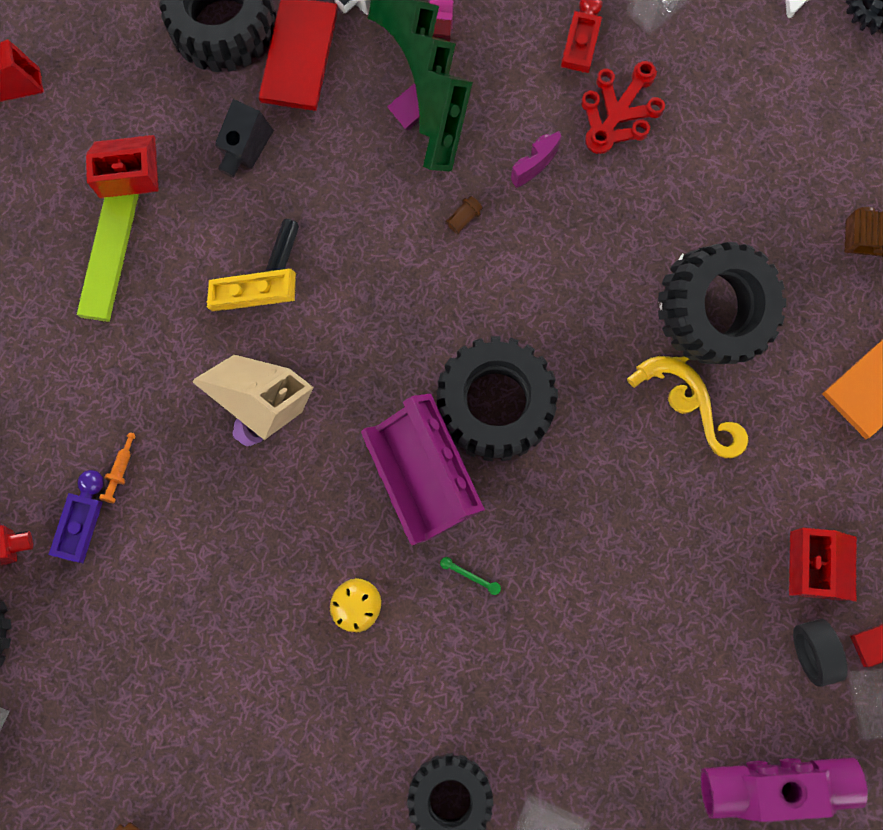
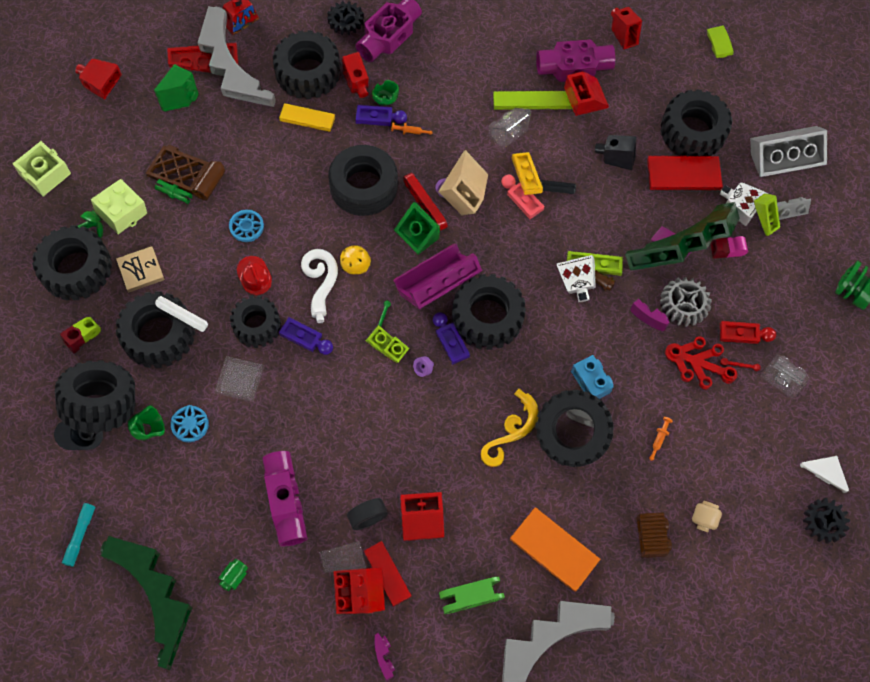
camera: 75 degrees right, 10 degrees down
(35, 500) = (386, 93): none -> green hair
(49, 168) = (575, 57): none -> magenta brick
(49, 651) = (307, 117): none -> yellow tile
(155, 300) = (509, 127): none -> clear slope
(164, 567) = (359, 159): none -> black tyre
(250, 794) = (246, 225): none -> dark azure wheel
(268, 467) = (424, 200): none -> red beam
(309, 299) = (527, 203): none -> coral plate
(320, 489) = (418, 229): none -> green slope
(350, 790) = (254, 275): none -> red piece
(428, 682) = (318, 306): none -> white plant
(429, 222) = (603, 263): none -> lime tile
(457, 246) = (579, 276): none -> white torso
(488, 713) = (305, 336): none -> dark purple plate
(516, 113) = (684, 311): none -> light grey gear
(520, 574) = (387, 345): none -> lime slope
(528, 469) = (450, 339): none -> dark purple plate
(571, 521) = (423, 366): none -> medium lavender tile
(621, 75) = (724, 362): none -> red hinge
(628, 264) = (592, 378): none -> dark azure brick
(729, 190) = (660, 437): none -> orange piece
(859, 154) = (707, 516): none -> tan head

